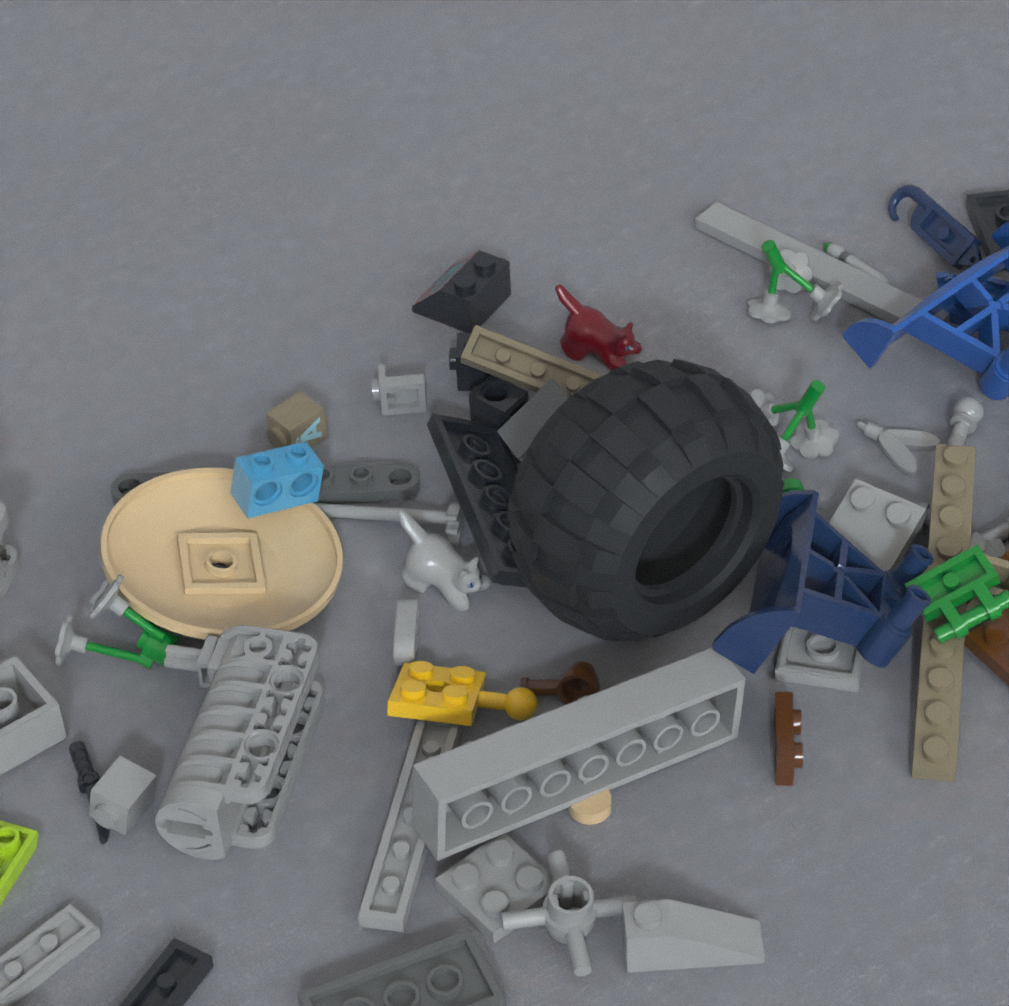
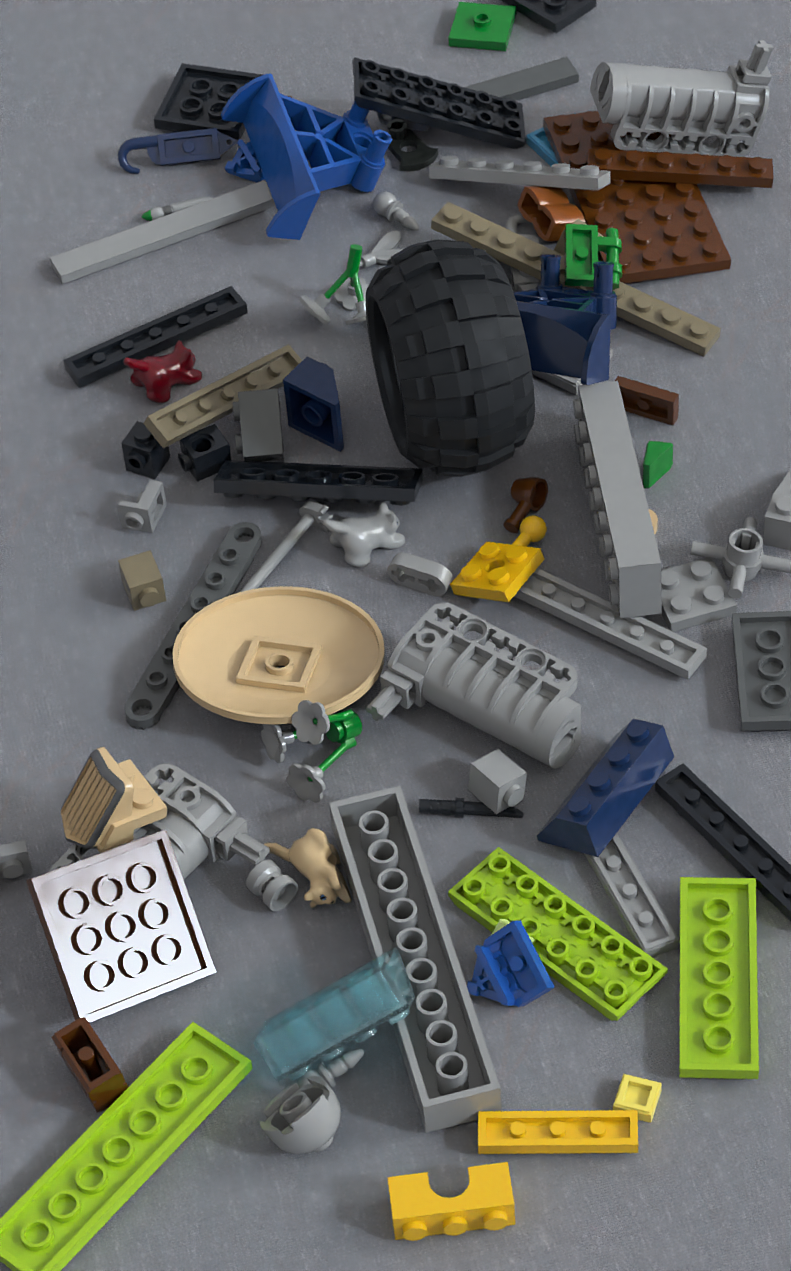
camera: 65 degrees left, 5 degrees up
(137, 896) = (610, 789): none -> dark blue slope
(276, 479) = (228, 593): dark azure brick -> none
(467, 292) = (49, 435): black slope -> none
(654, 315) = (155, 336): none -> black plate
(683, 780) = (657, 461): none -> green slope
(792, 273) = (168, 244): light grey plant -> none

